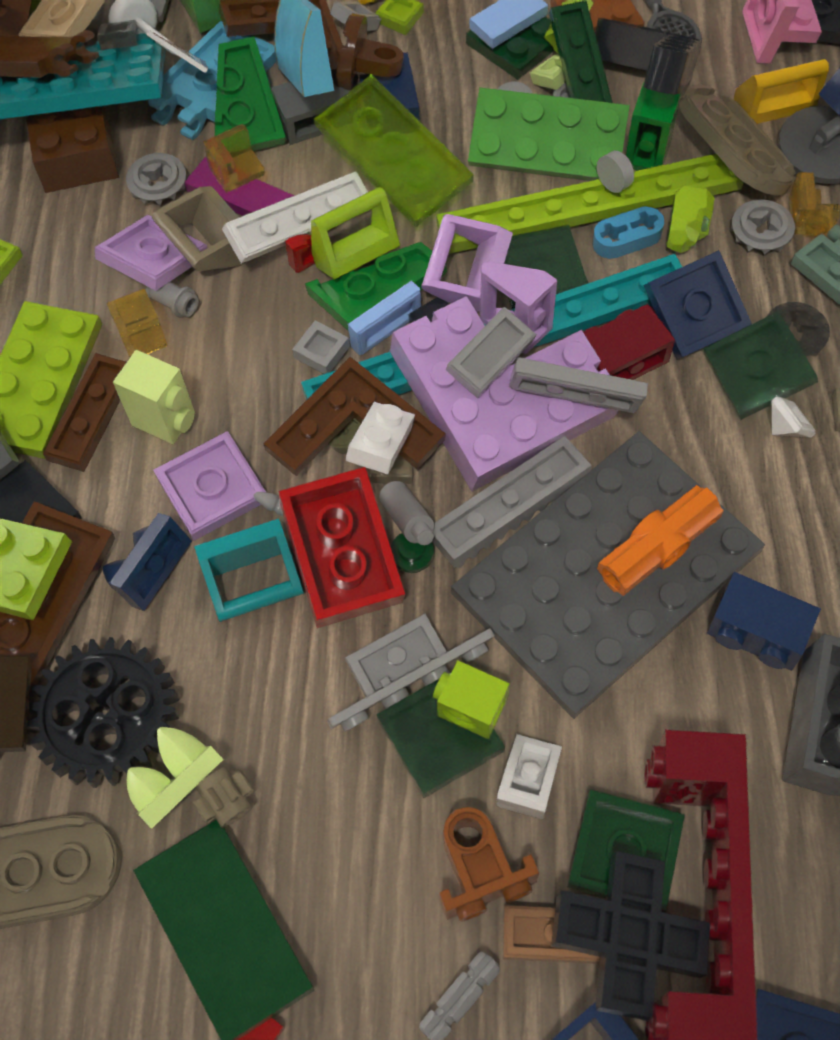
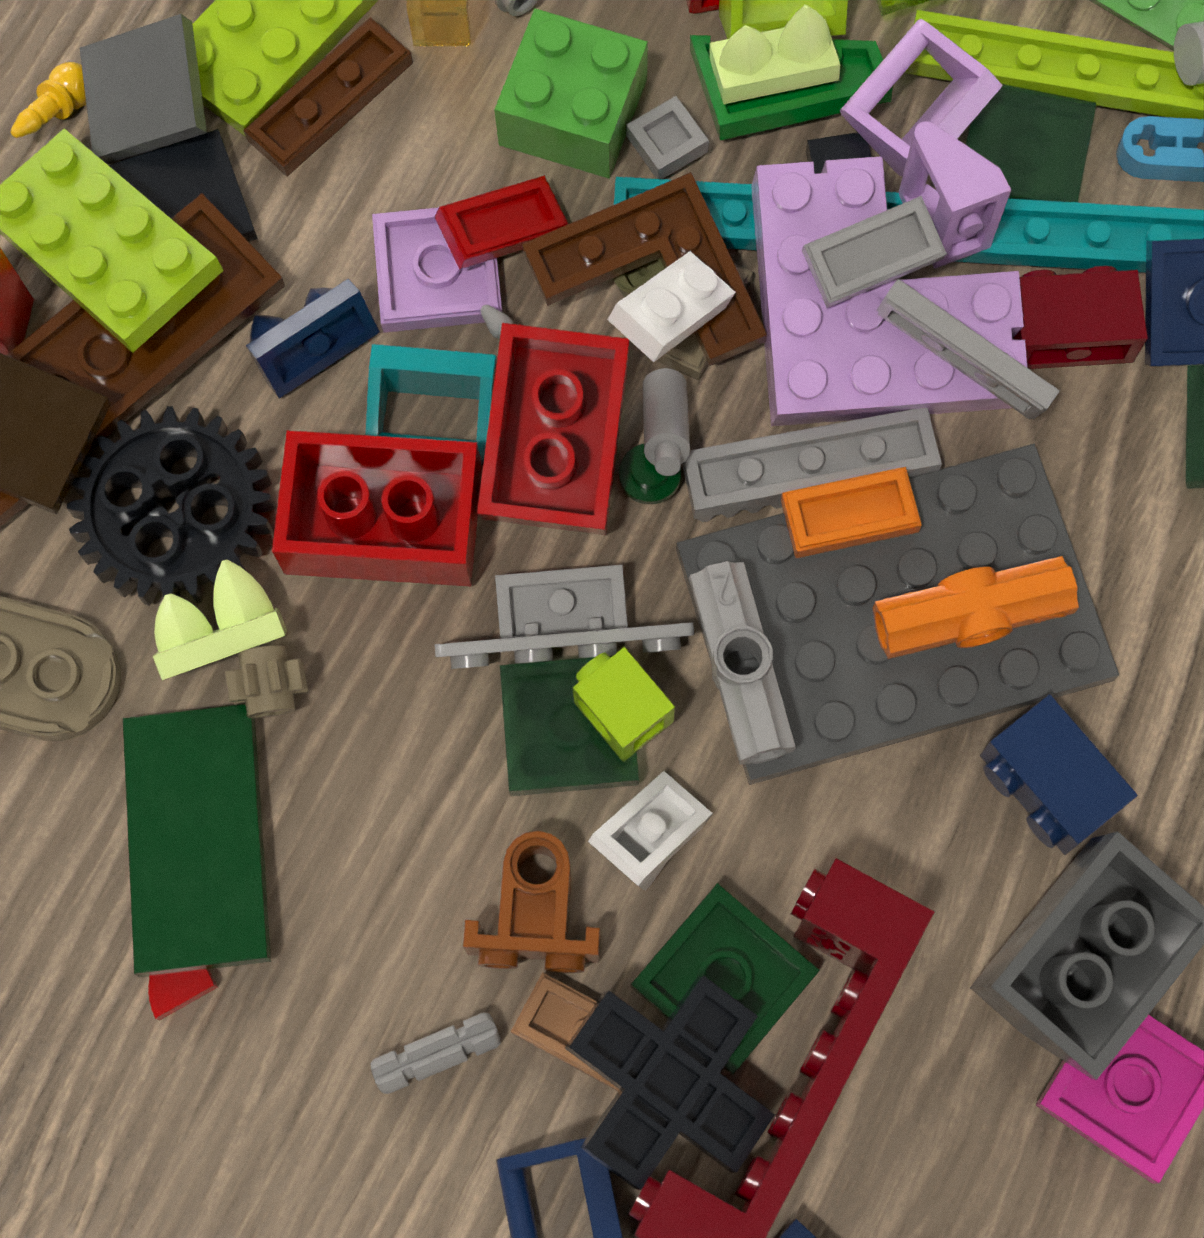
camera: 25 degrees right, 10 degrees up
(155, 397) = (413, 117): yellowish green brick -> none
(238, 439) = (499, 221): none -> red tile
(247, 649) = (378, 508): none -> red brick
(248, 345) = (571, 93): none -> bright green brick
(368, 274) = (776, 59): none -> yellowish green tile
(384, 318) = (771, 132): light blue tile -> none
(552, 518) = (850, 512): none -> orange tile
(554, 659) = (751, 700): none -> light grey piece

